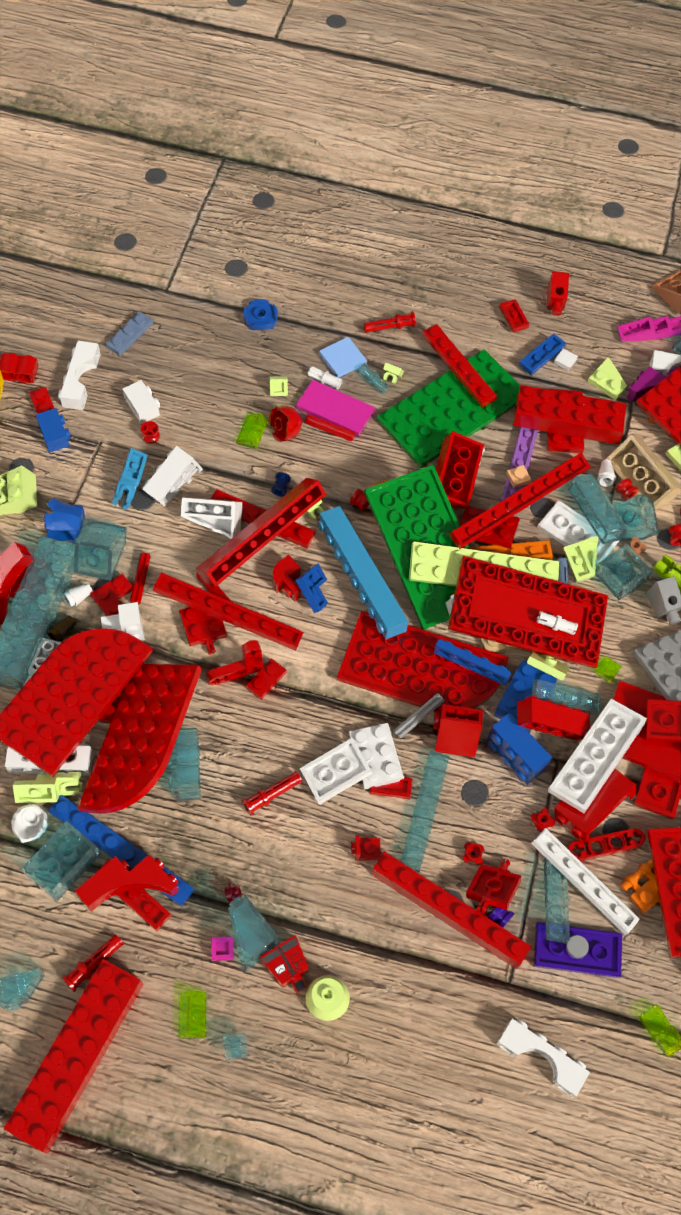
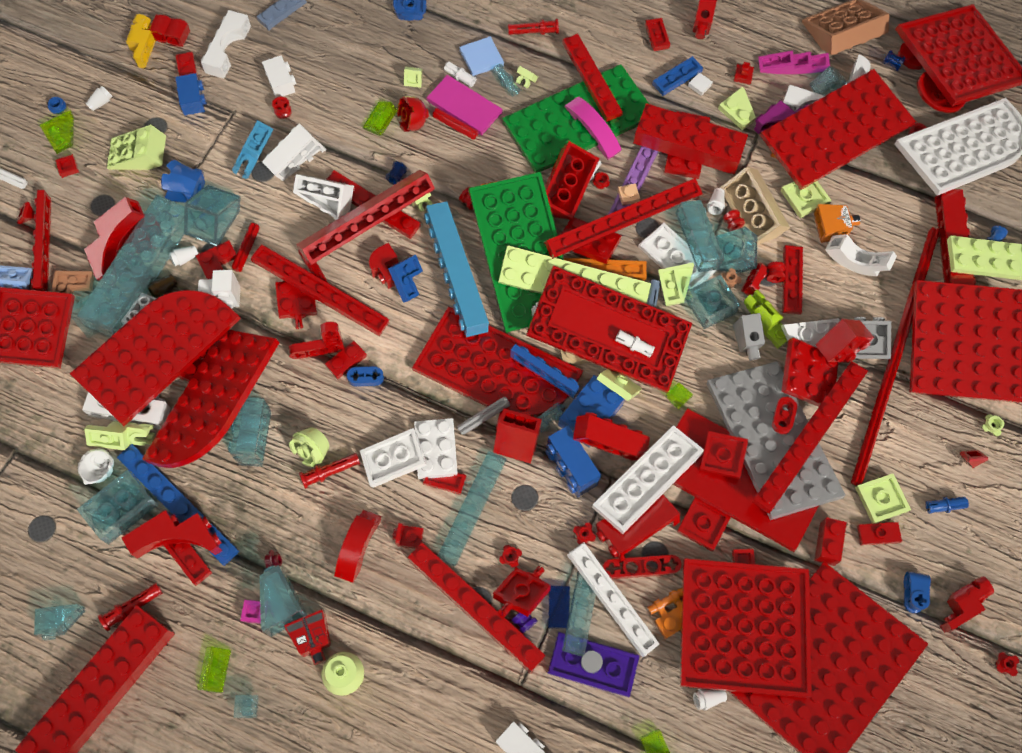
camera: 10 degrees right, 5 degrees up
(249, 771) = (310, 446): none -> yellowish green cone
(289, 693) = (363, 379): none -> blue beam
(316, 865) = (355, 545): none -> red arch
(472, 412) = (595, 125): none -> dark pink slope
(488, 462) = (601, 176): none -> red plate
(488, 703) = (550, 415): none -> clear light blue plate
(532, 898) = (558, 607): none -> clear blue tile
(572, 697) = (630, 417): clear light blue plate -> none
(606, 344) = (743, 73): none -> red tile
(658, 545) = (754, 279): none -> red plate

